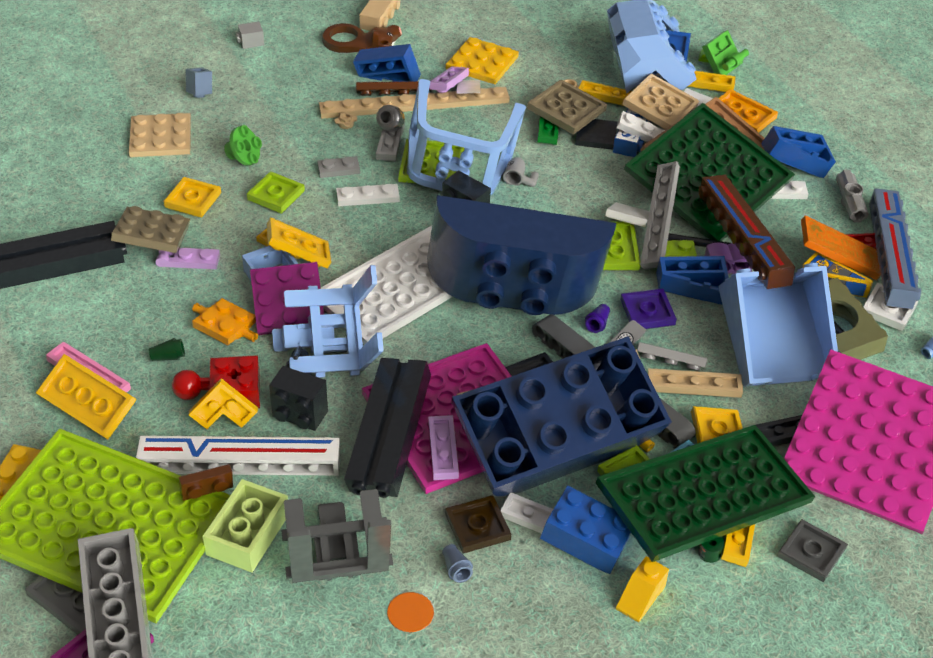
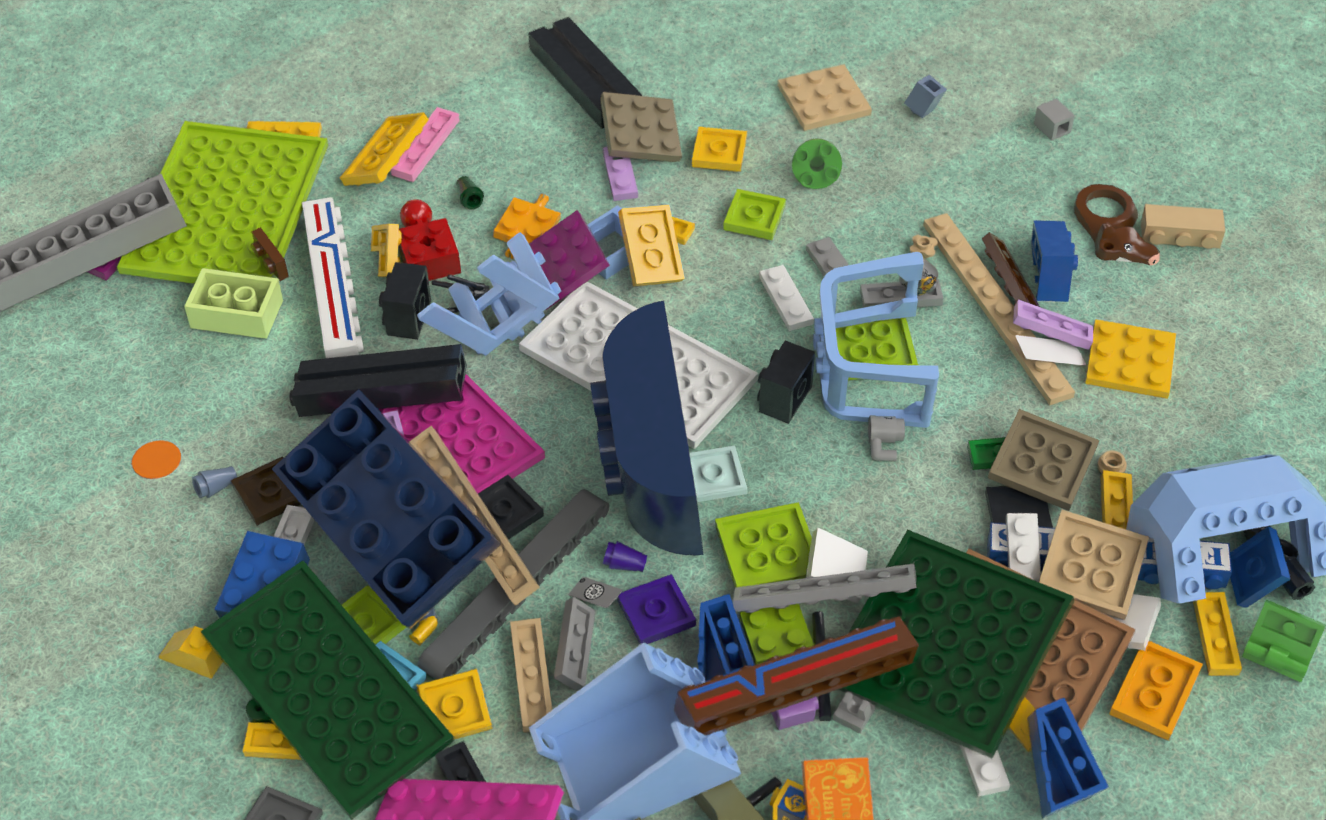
camera: 80 degrees right, 5 degrees up
(336, 540) = (212, 381): dark grey piece -> none

